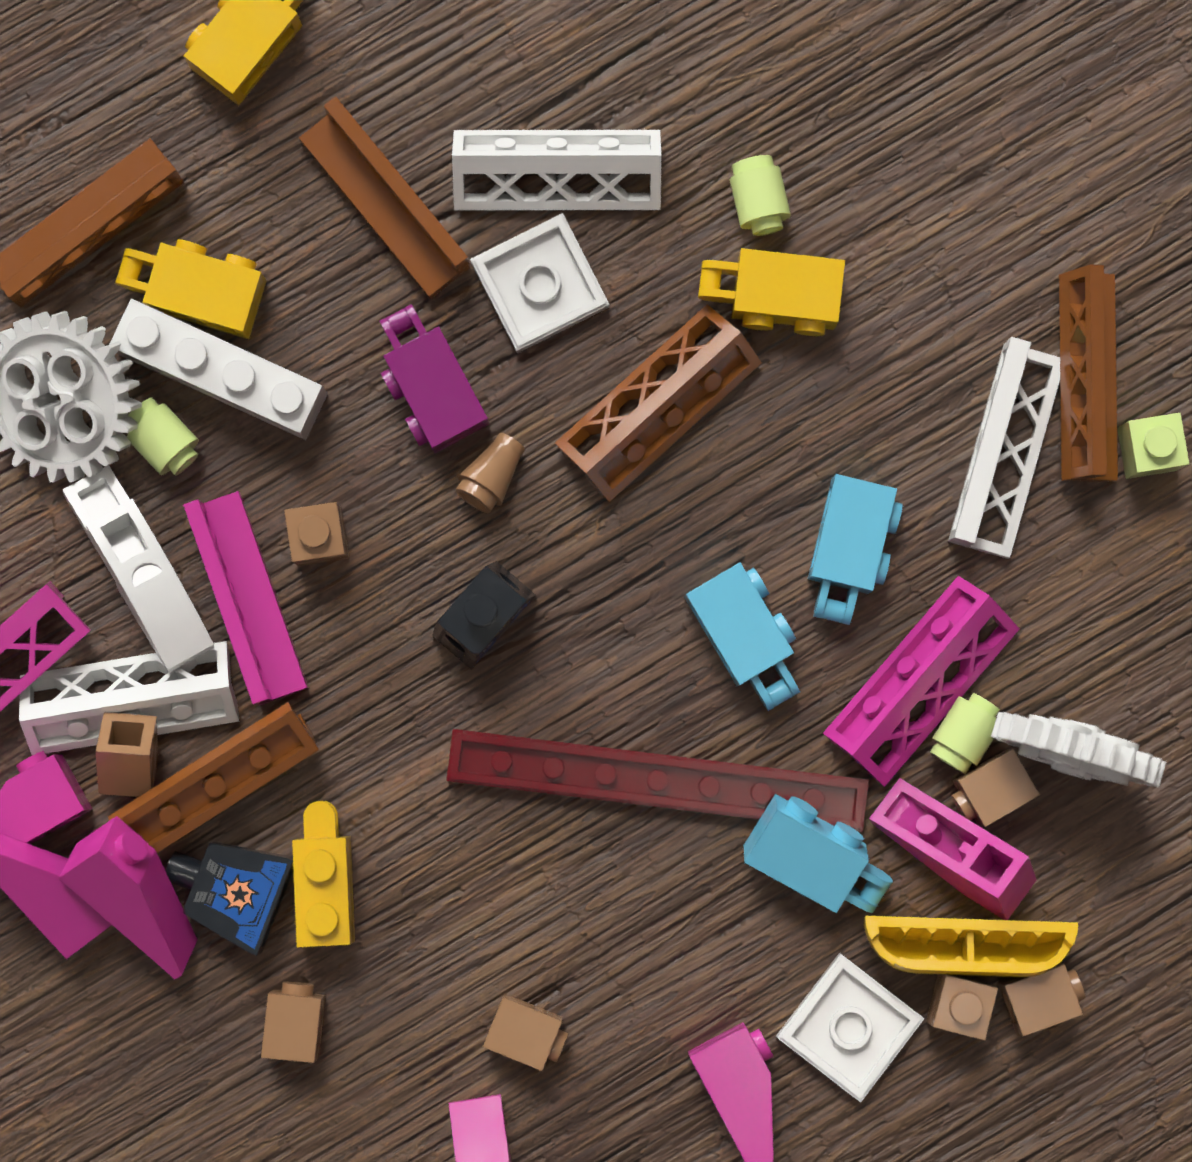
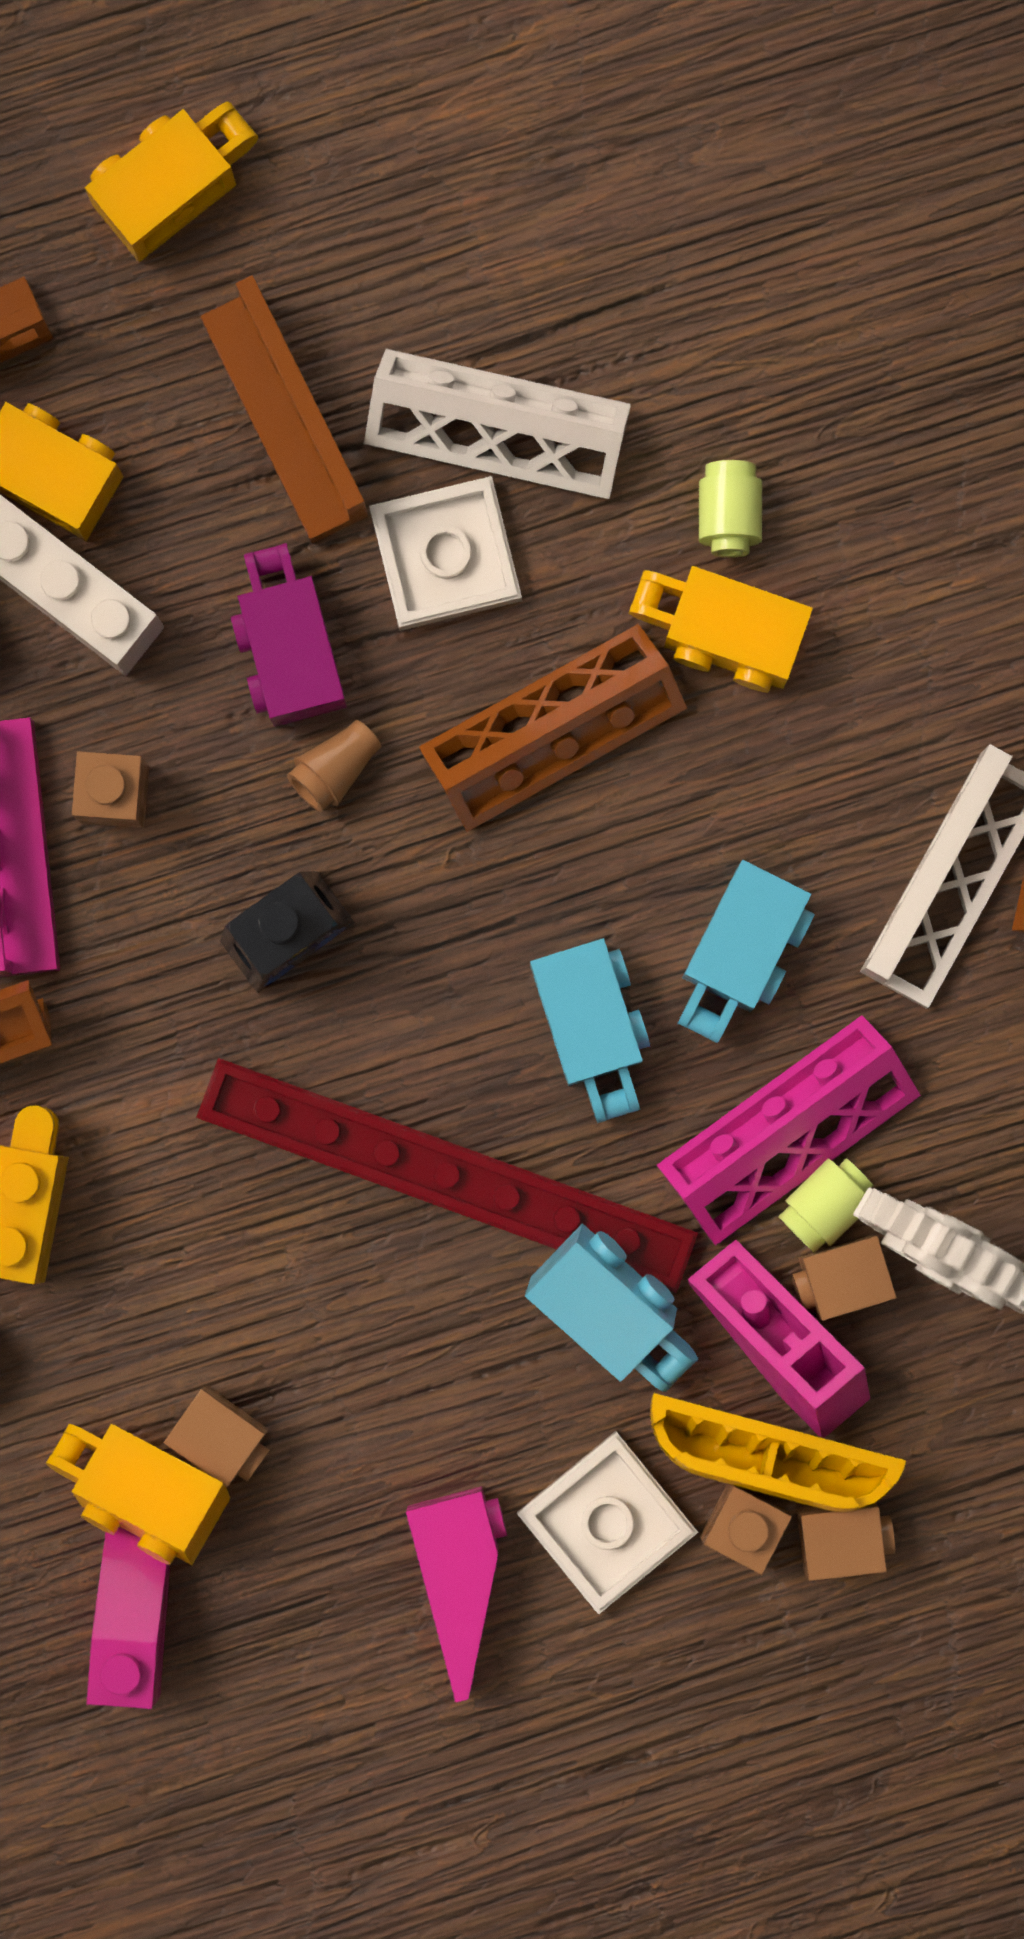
camera: 20 degrees right, 0 degrees up
(473, 1090) = (141, 1491): none -> yellow brick

